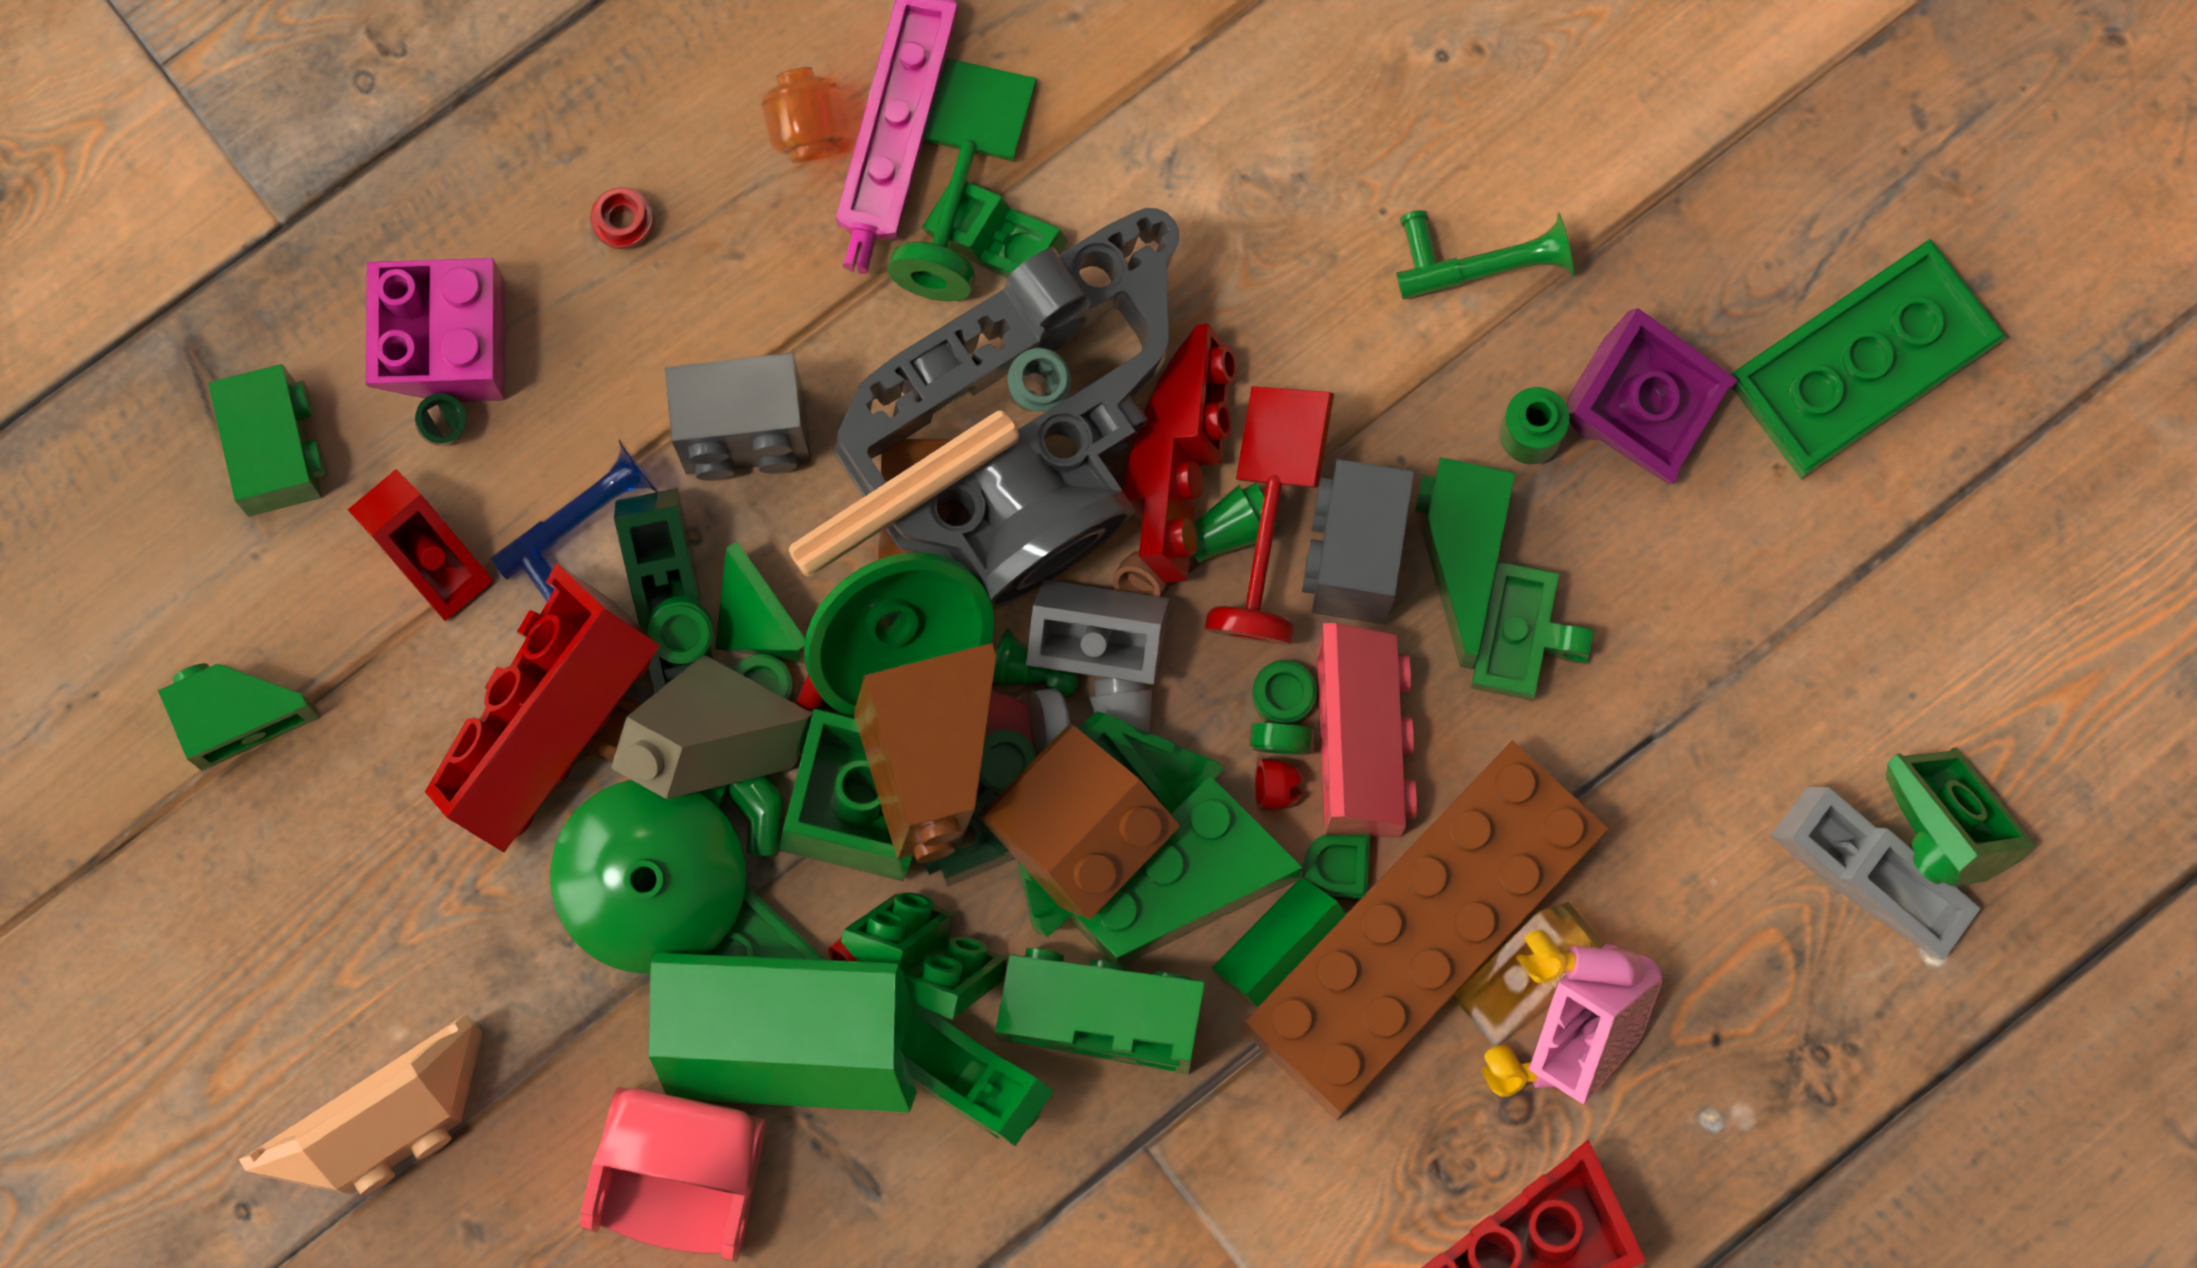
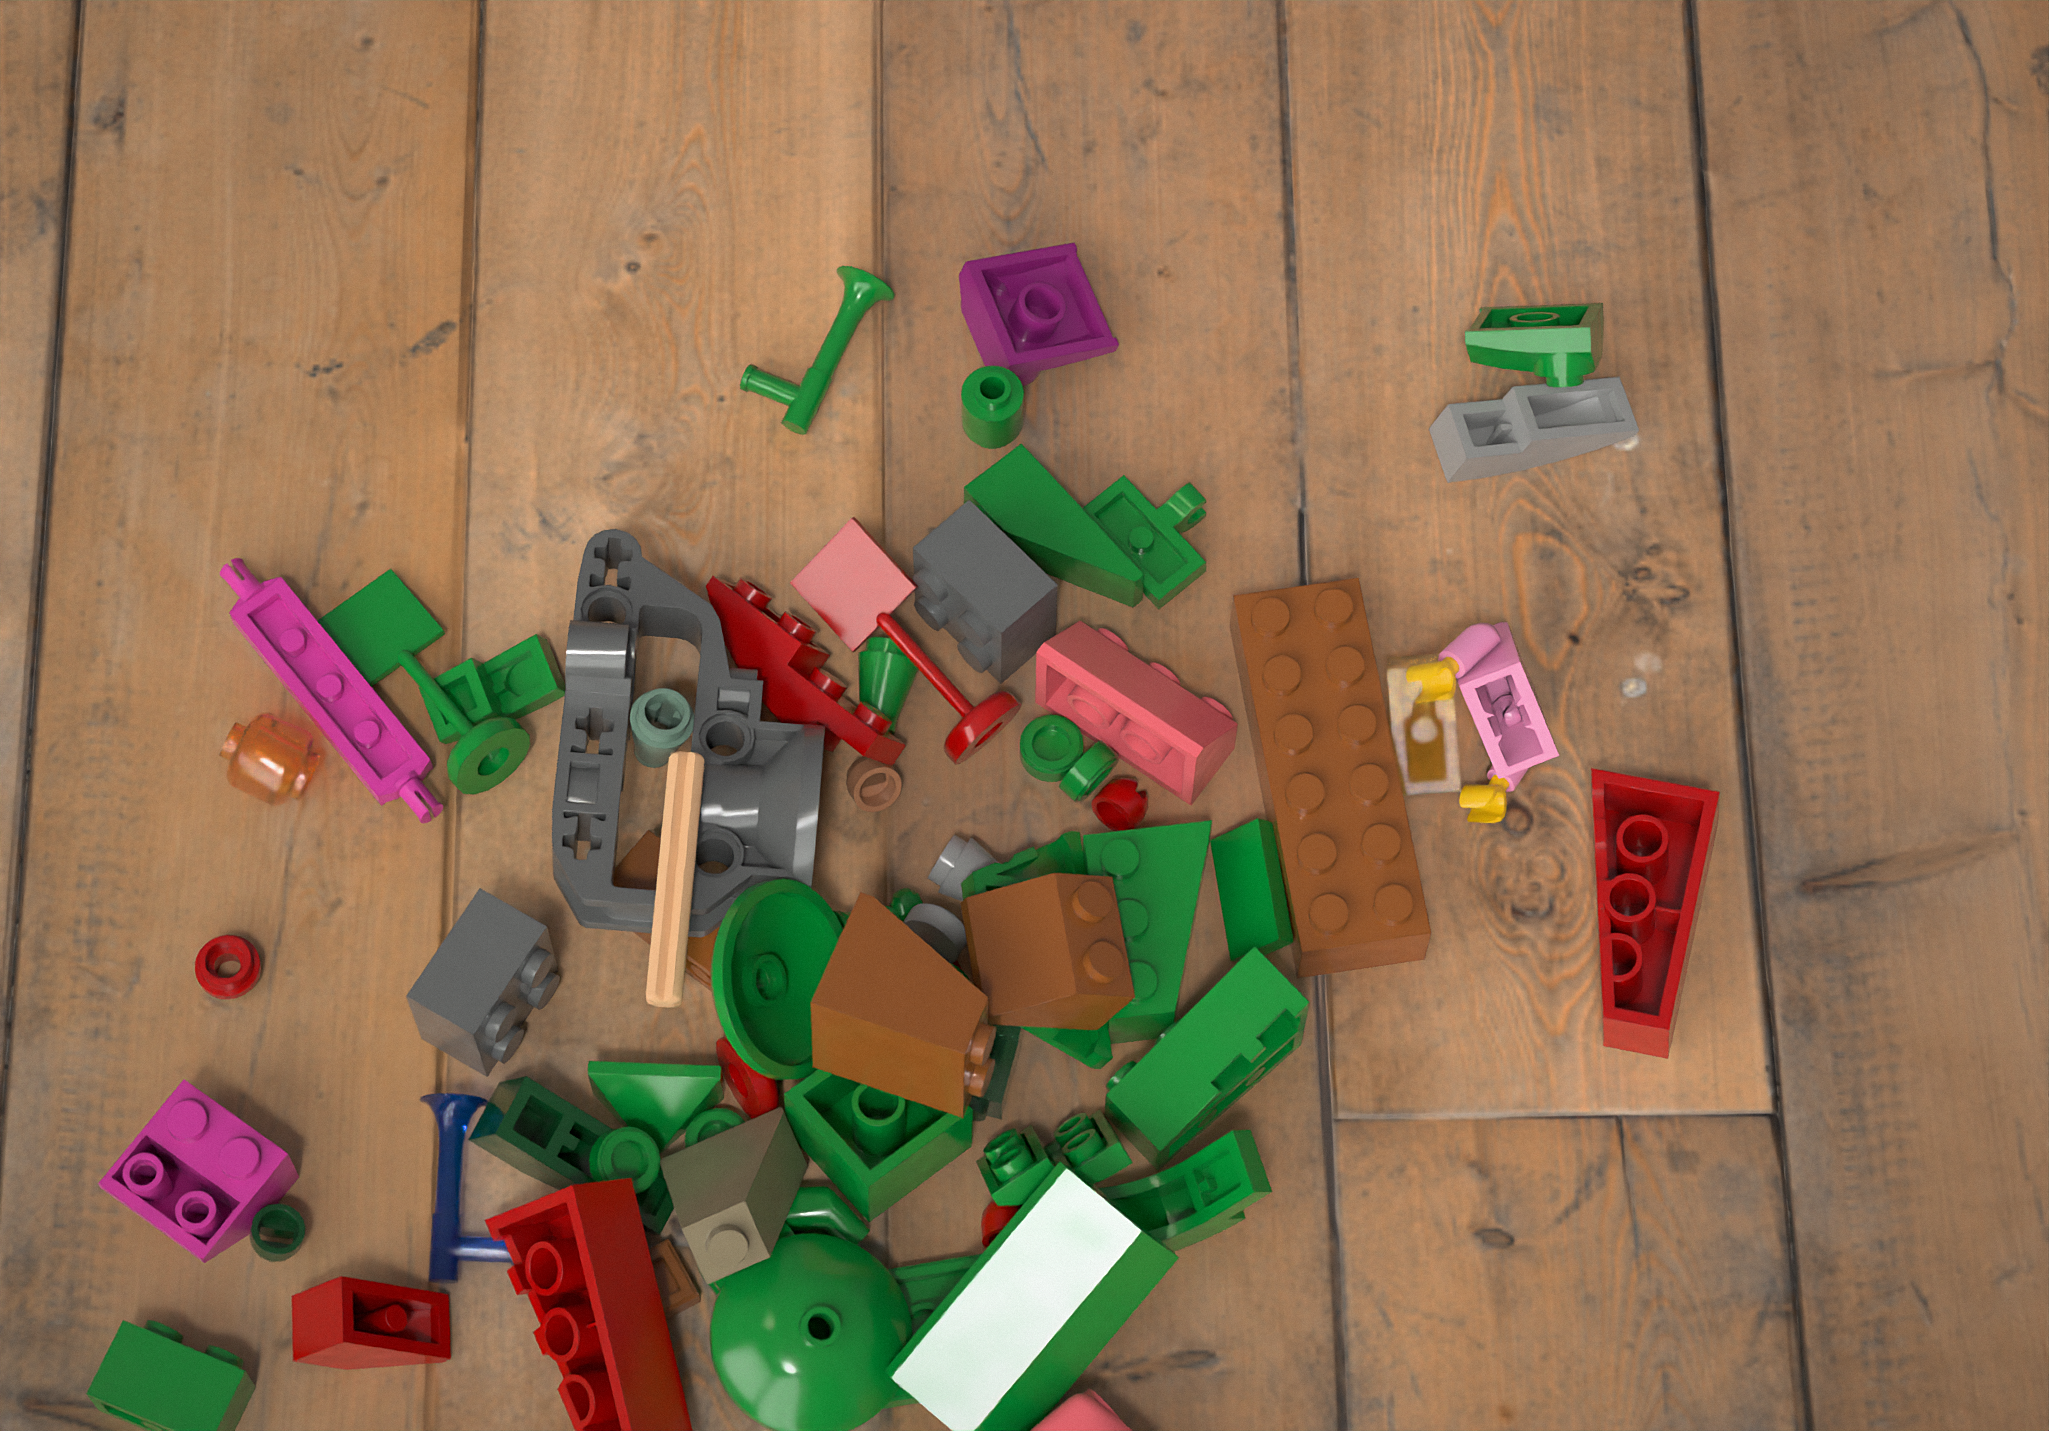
camera: 55 degrees left, 10 degrees down
(1097, 631) = (894, 838): light grey brick -> none
(1339, 865) = (1225, 803): green tile -> none
(1866, 358) = (1129, 149): green tile -> none

